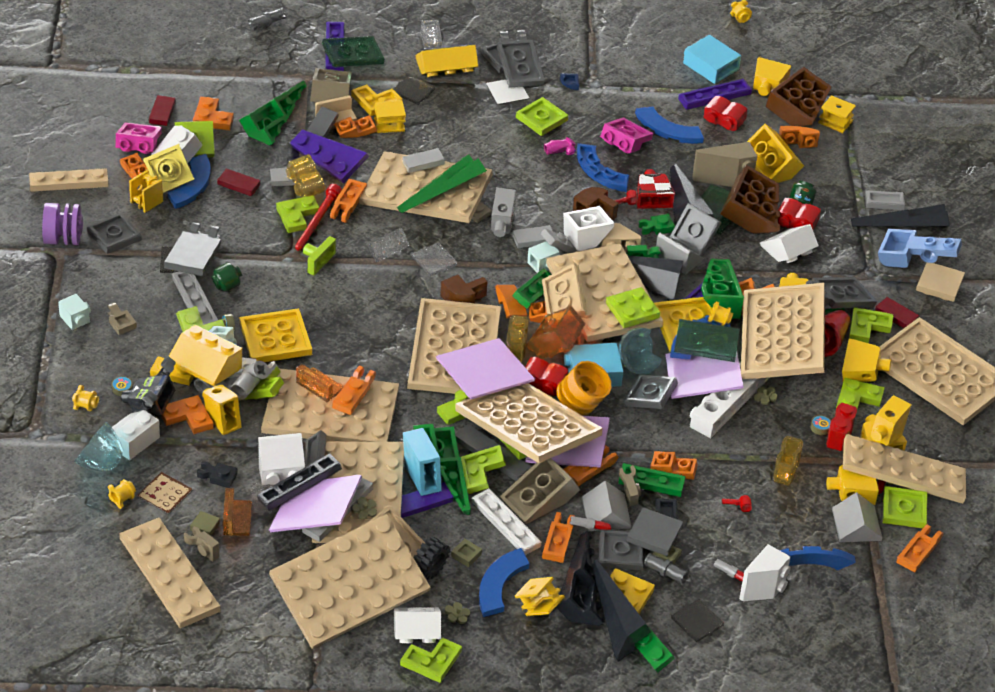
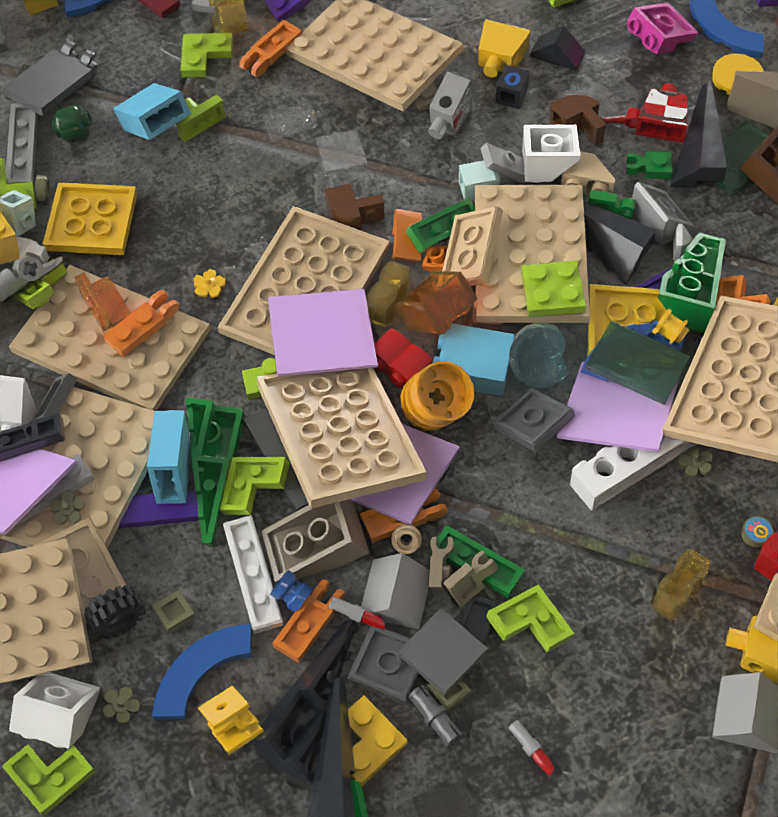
camera: 25 degrees right, 15 degrees up
(287, 256) = (152, 111): none -> medium azure brick
(331, 195) = (255, 33): red piece -> none
(383, 361) = (209, 284): none -> yellow plant
(423, 160) = (380, 13): light grey tile -> none
(452, 177) = (408, 43): green wedge -> none
(518, 168) = (501, 46): none -> yellow torso
(529, 236) = (468, 145): light grey tile -> none
(539, 192) = (512, 86): none -> black brick
(542, 523) = (291, 591): none -> blue wheel
(558, 162) = (558, 49): none -> black slope
(559, 146) = (574, 26): dark pink arm -> none
(594, 169) = (604, 71): blue tile -> none
(603, 472) = (406, 547): none -> tan plate
(652, 488) = (468, 579): none -> dark tan plate
(669, 463) = (518, 544): orange slope -> none
(685, 155) = (725, 69): none -> yellow tile
(695, 229) = (694, 185): tile -> none
(699, 268) = (681, 241): none -> white slope
(702, 498) = (532, 611): none -> lime plate
(744, 502) = (594, 632): red hand -> none
(765, 575) = (568, 779): white slope -> none
(814, 555) = (648, 763): blue tile -> none

